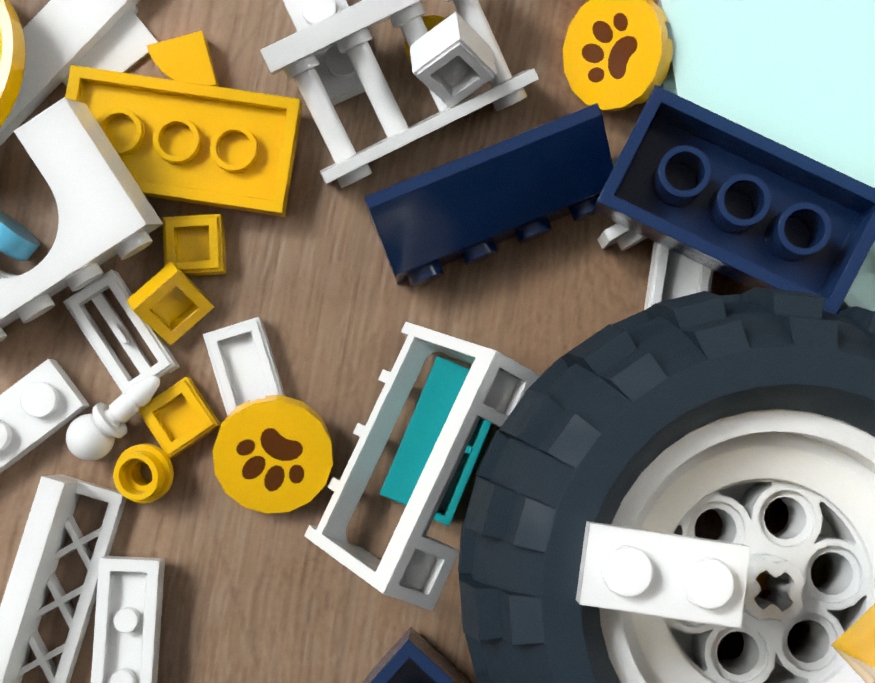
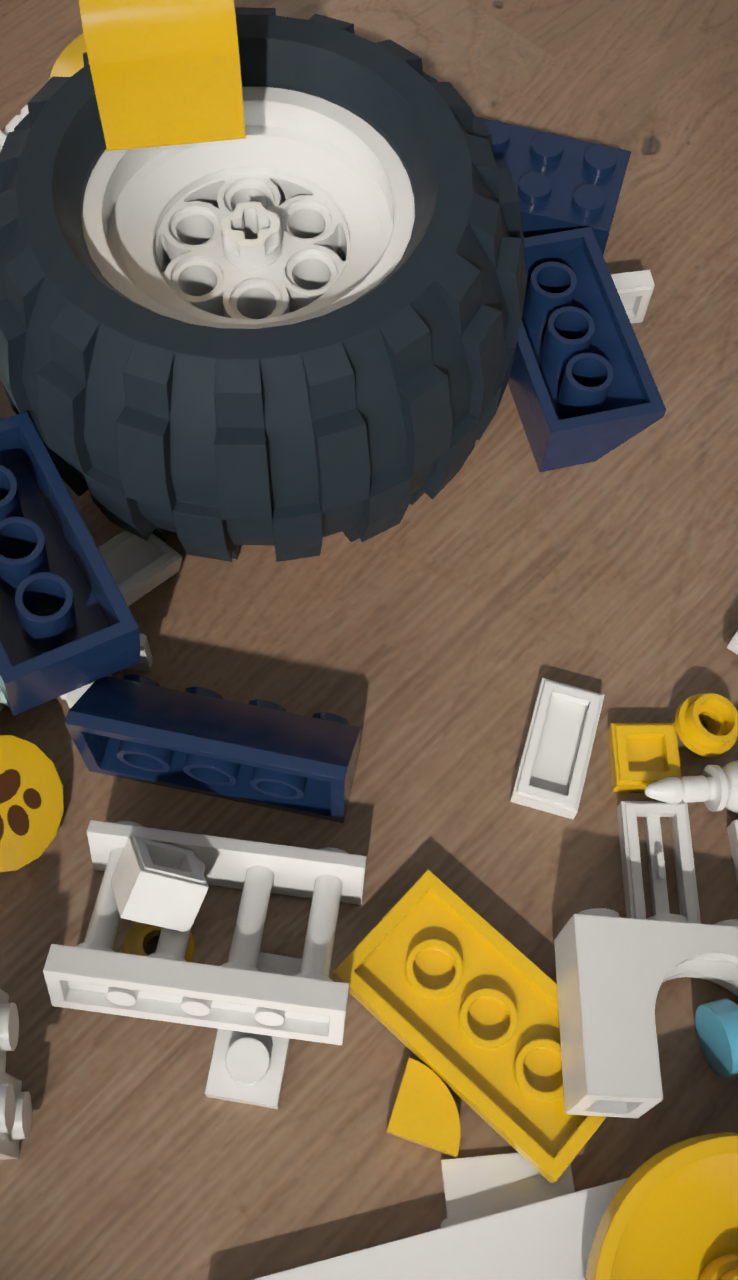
camera: 150 degrees left, 20 degrees down
(170, 303) = (593, 857): yellow plate -> none
(195, 244) = (534, 908): yellow tile -> none
(273, 454) = (574, 663): yellow tile -> none
(414, 563) = (356, 539): white hinge -> none
(421, 435) = (411, 579): teal piece -> none
(663, 574) = (332, 235): white plate -> none

